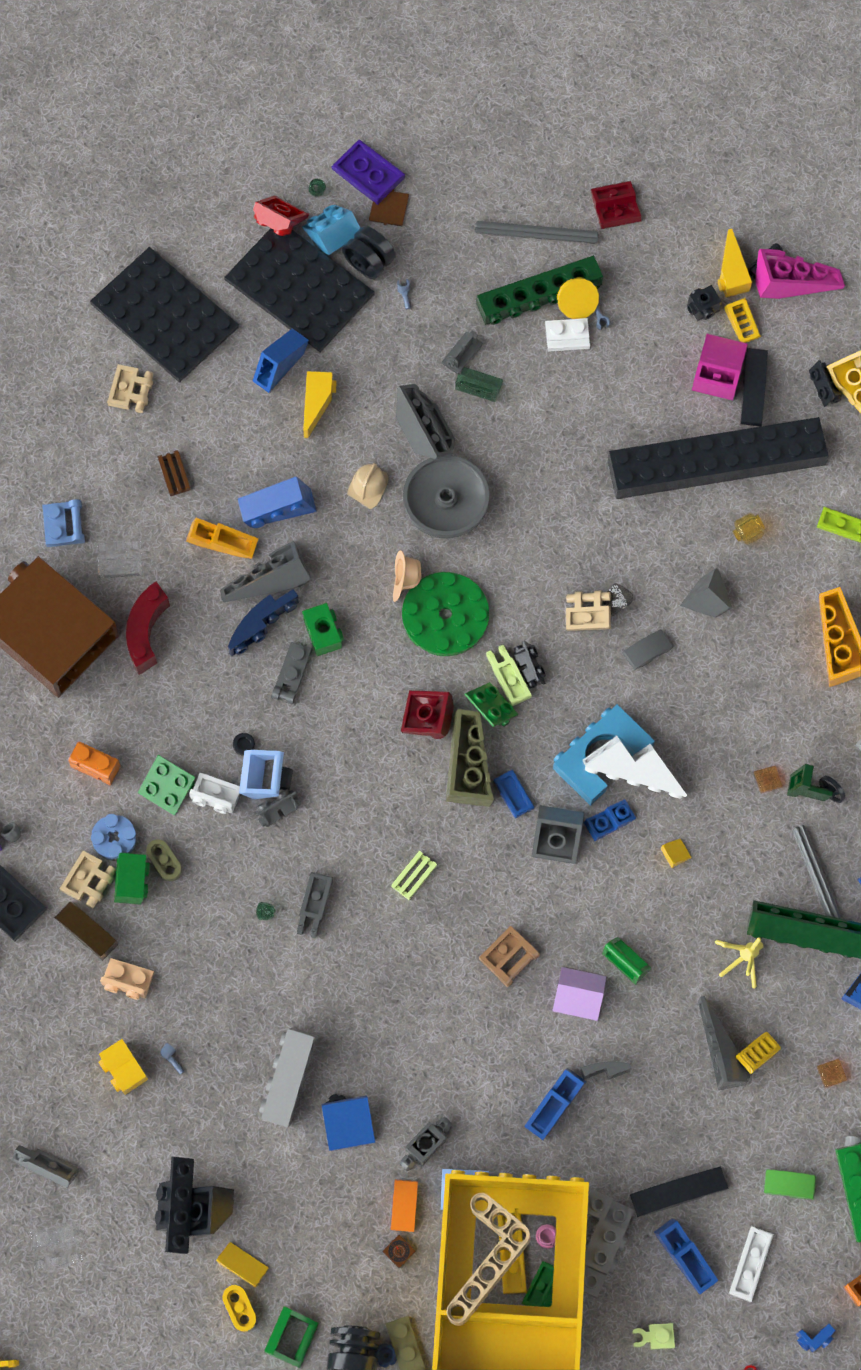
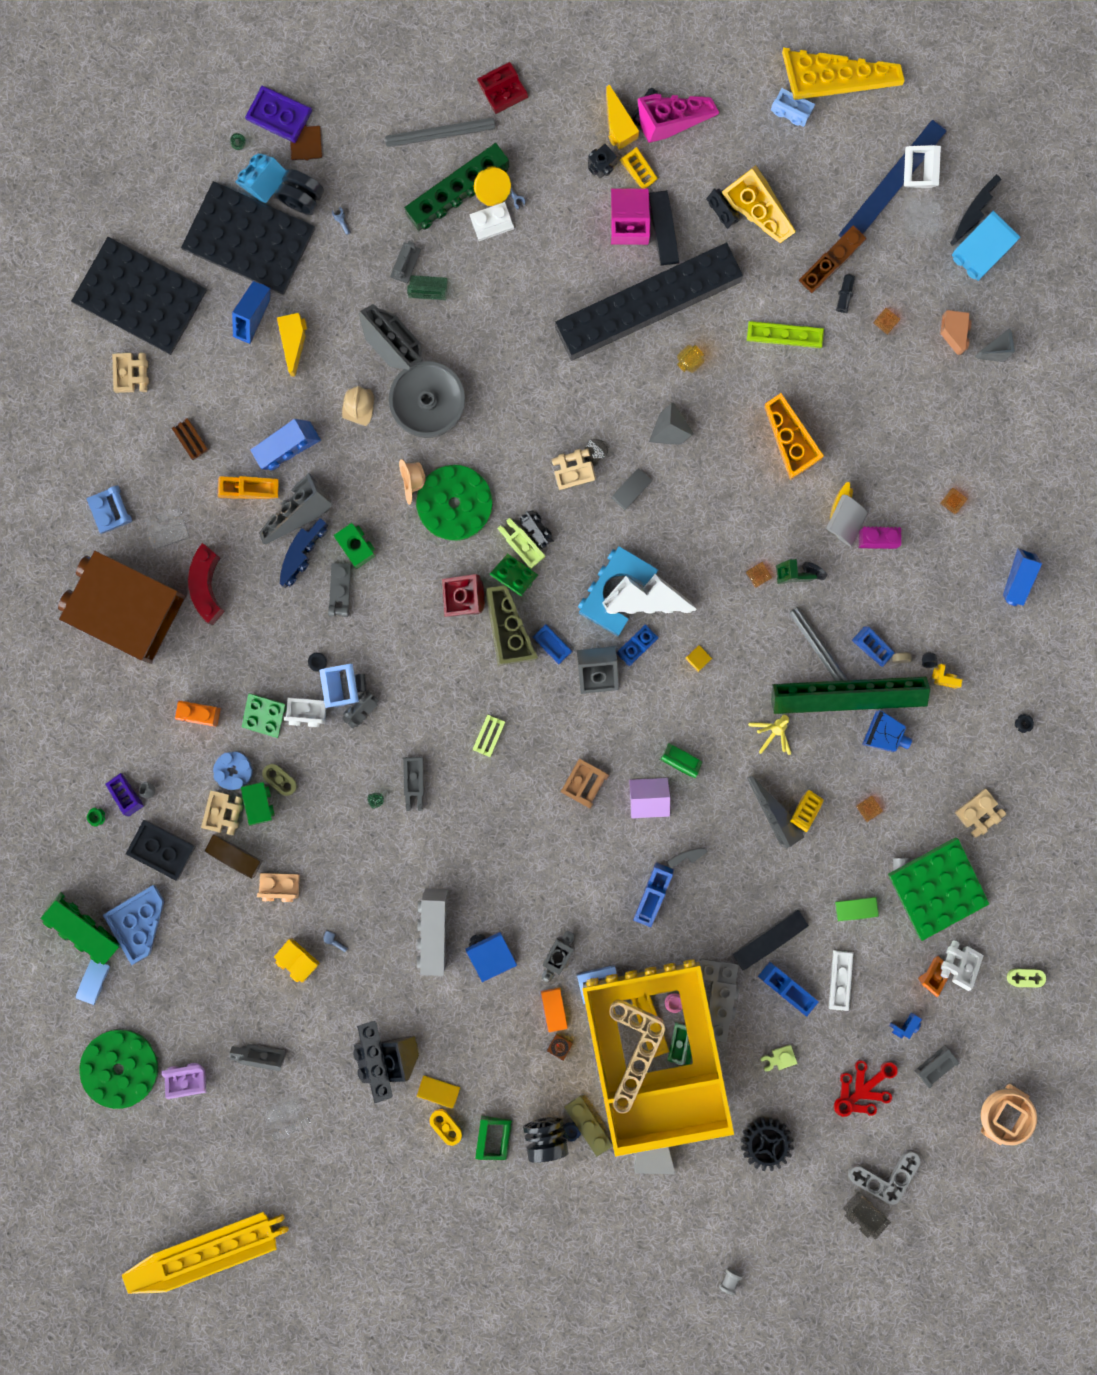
camera: 10 degrees left, 15 degrees up
(278, 215) = (211, 177): red slope -> none

